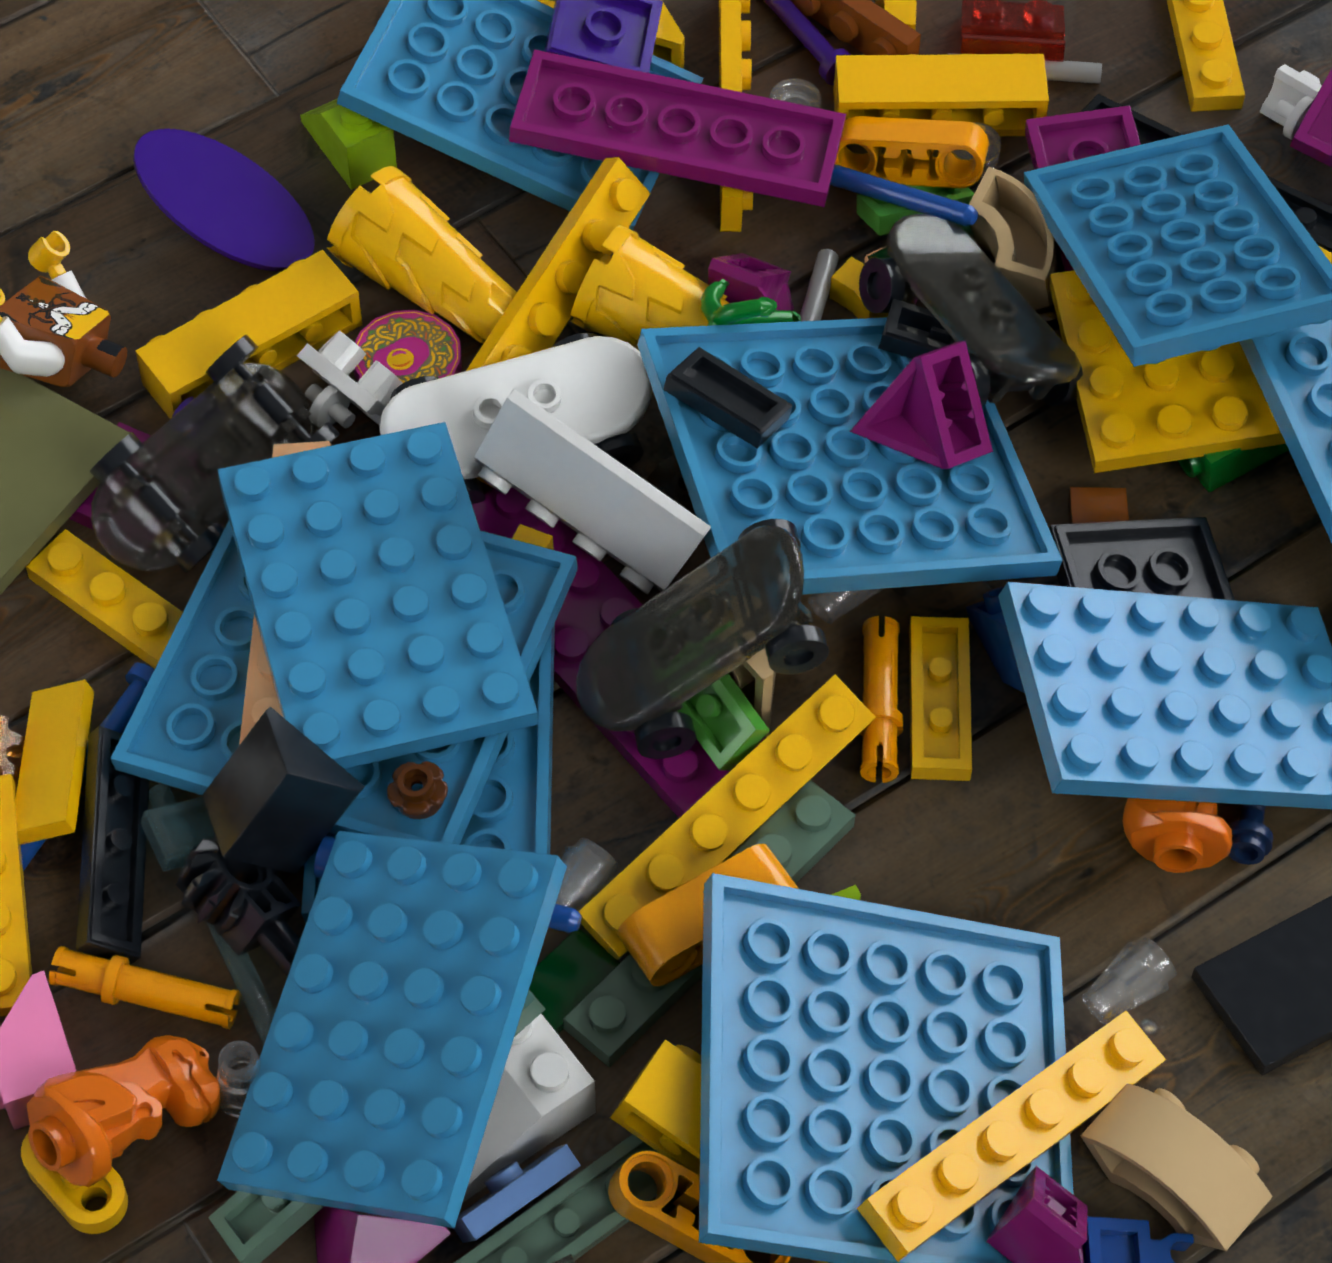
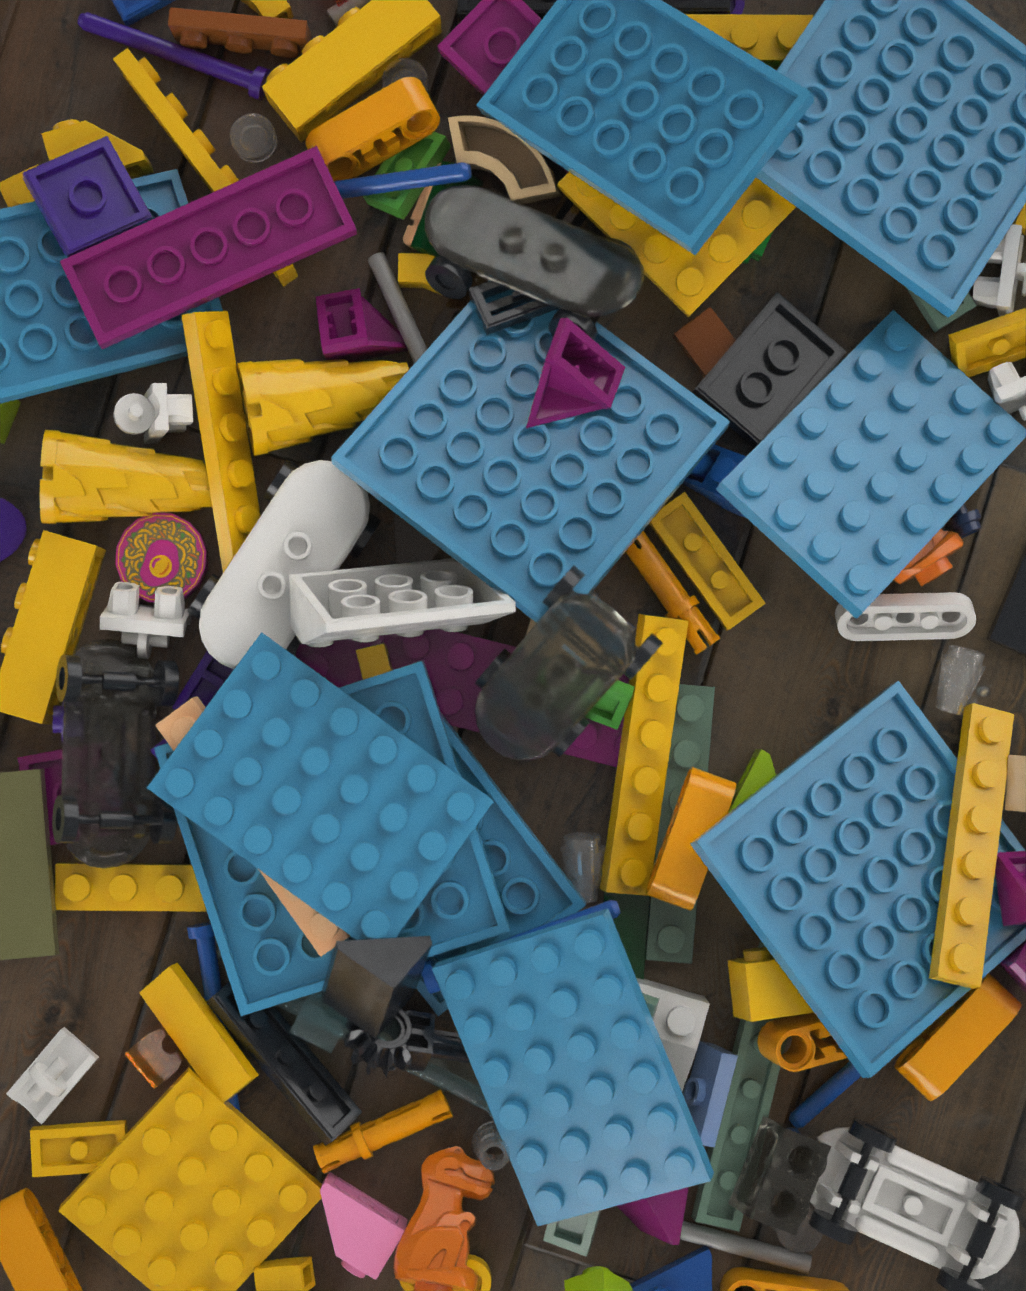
camera: 35 degrees left, 30 degrees up
(418, 803) = (459, 893): reddish brown plate -> none
(513, 234) = (154, 413): none -> white hips
(728, 397) = (434, 473): black tile -> none
(742, 312) = (384, 380): green piece -> none
(1088, 879) = (909, 618): none -> white plate

